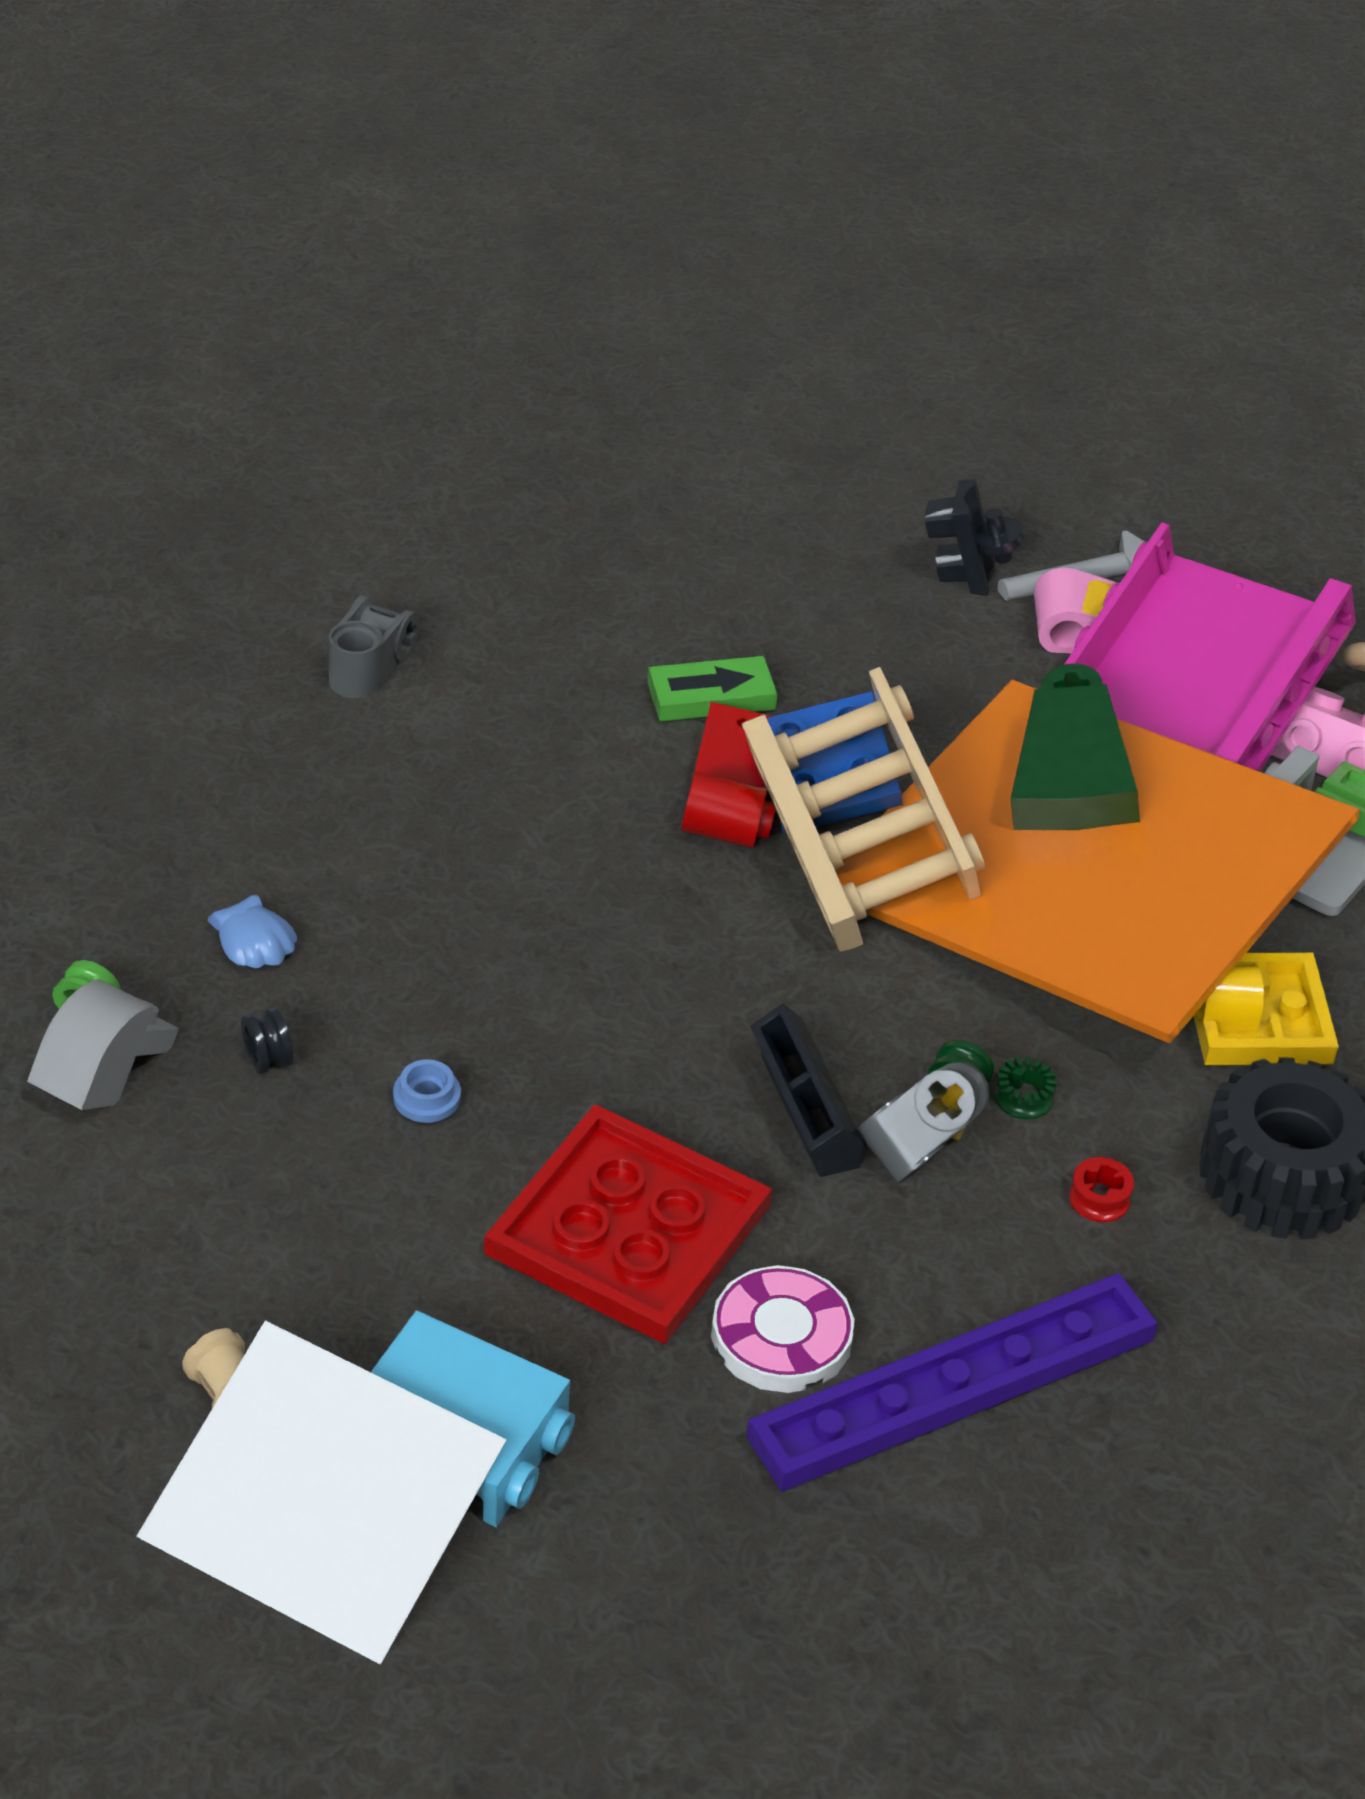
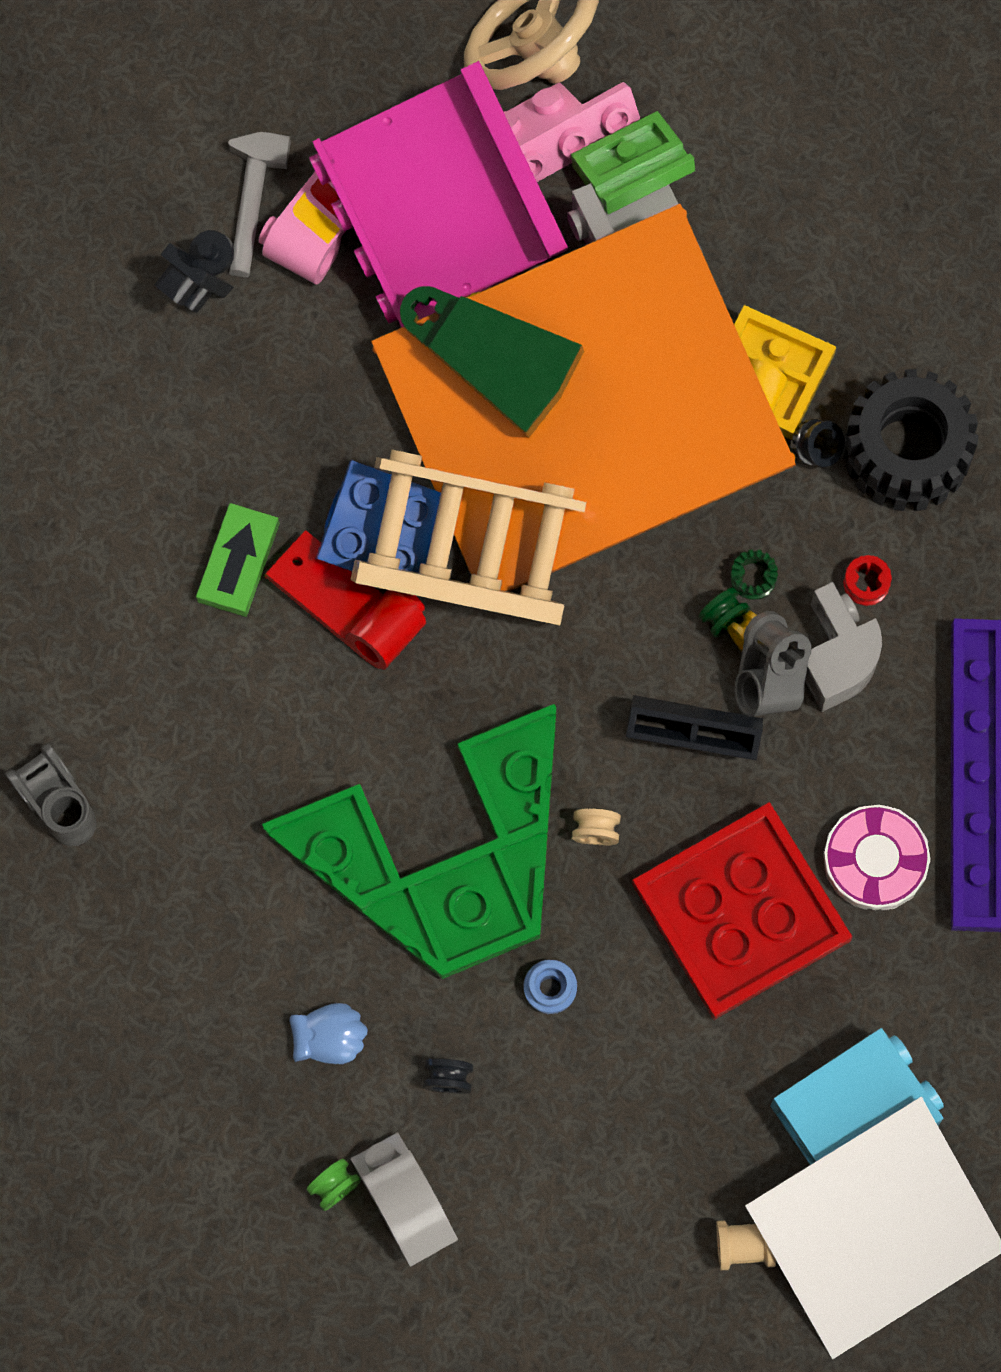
camera: 55 degrees left, 30 degrees up
(498, 1002) = (464, 905): none -> green wing
(634, 1057) = (596, 827): none -> tan bush
(993, 1196) = (849, 658): none -> light grey brick
(1199, 1070) = (805, 442): none -> black bush

